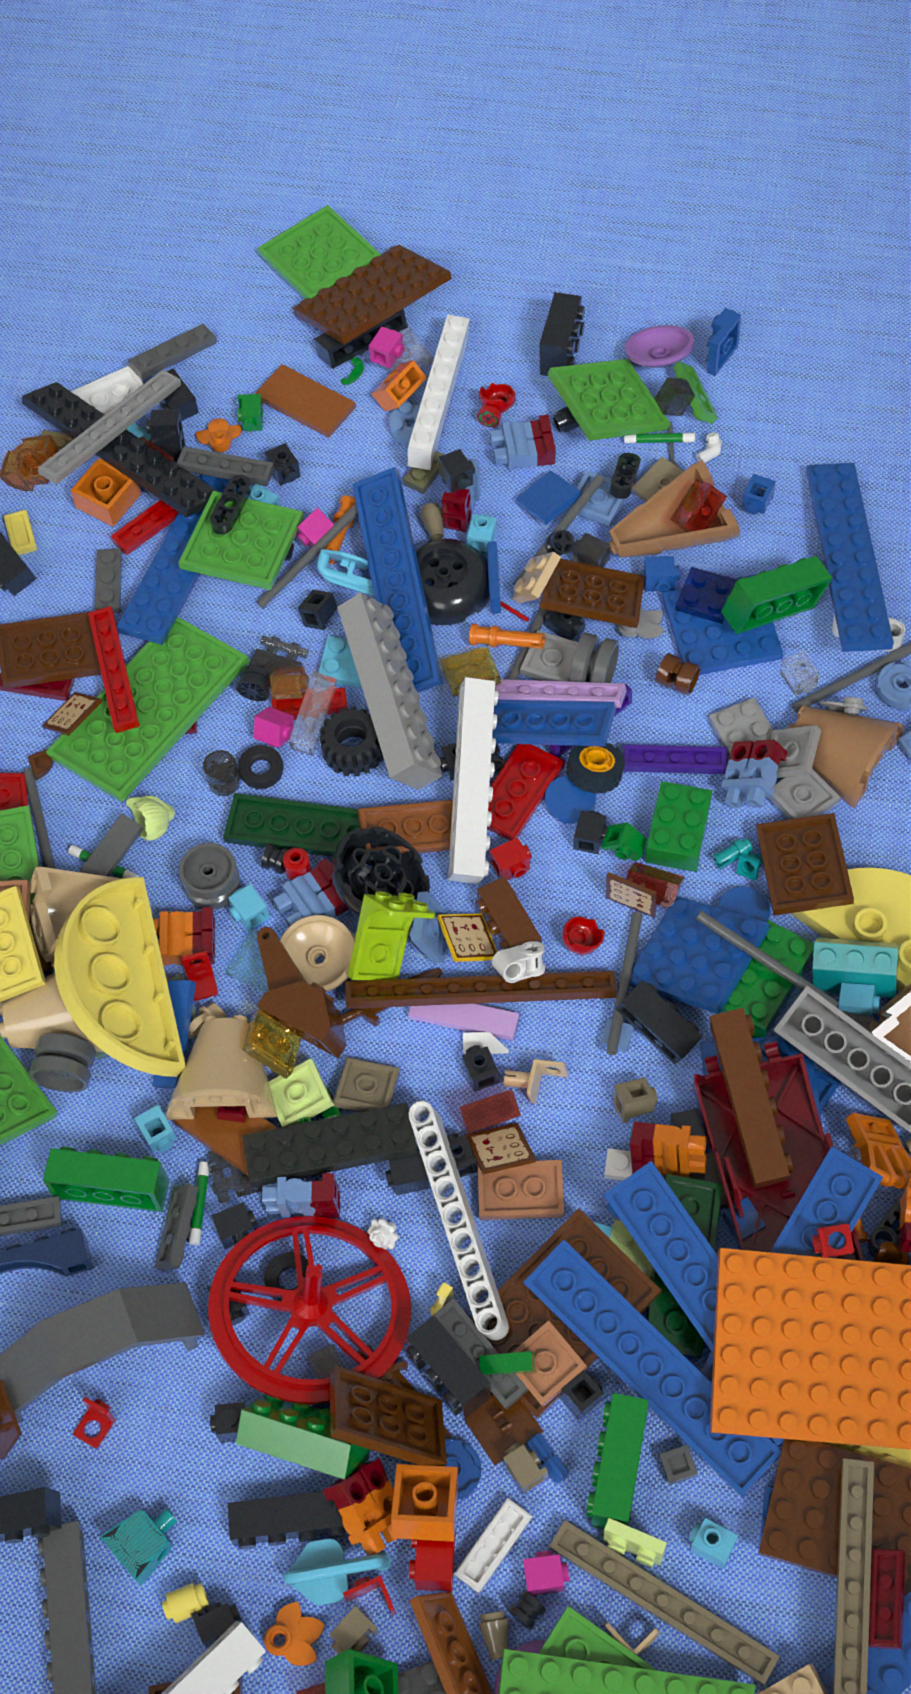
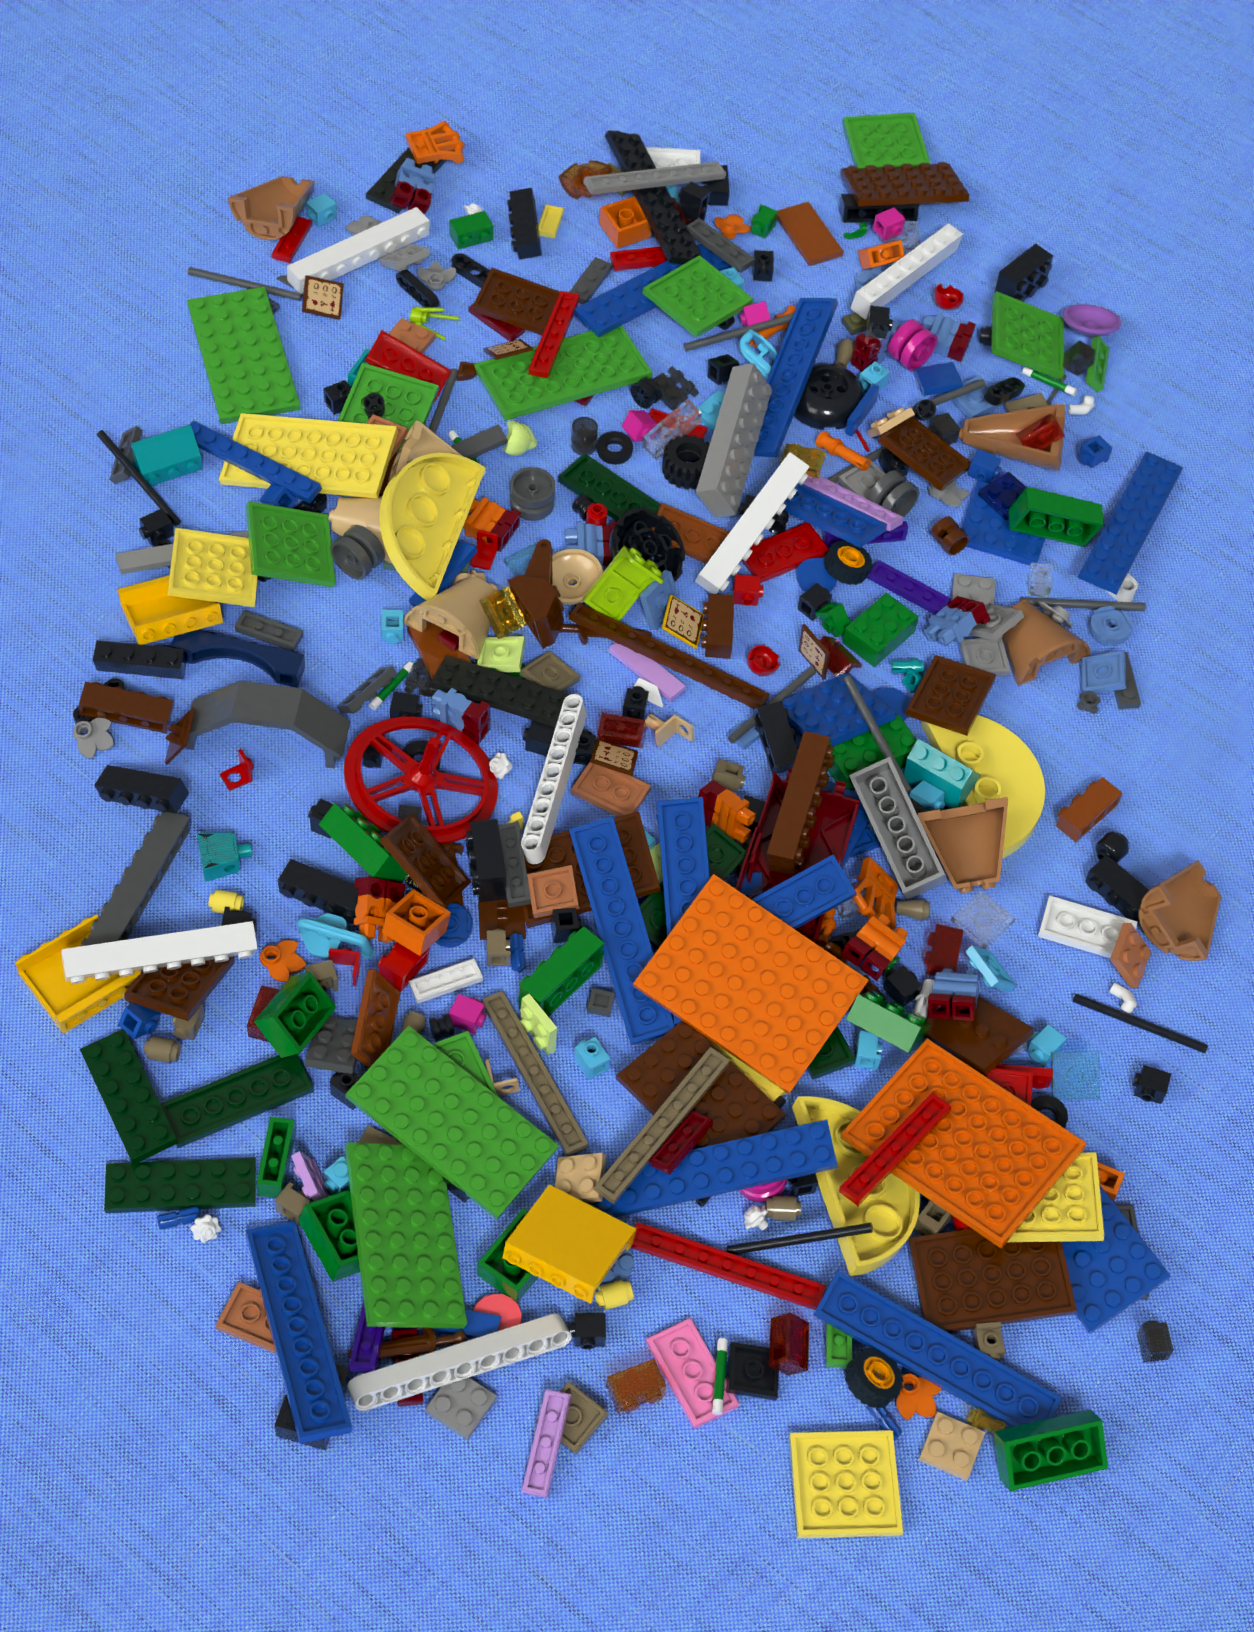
camera: 20 degrees right, 5 degrees down
(106, 1179) = (340, 635): green brick -> none
(172, 351) = (736, 155): dark grey plate -> none
(231, 513) = (715, 262): black beam -> none
(248, 908) = (545, 526): medium azure brick -> none
(289, 682) = (667, 401): clear orange brick -> none
(489, 416) = (934, 306): red tile -> none
(499, 474) = (912, 344): none -> dark pink wheel
(507, 1363) = (529, 876): green piece -> none
(520, 961) = (711, 654): white piece -> none
(723, 340) = (1141, 339): blue plate -> none
(821, 1243) = (787, 908): red bracket -> none

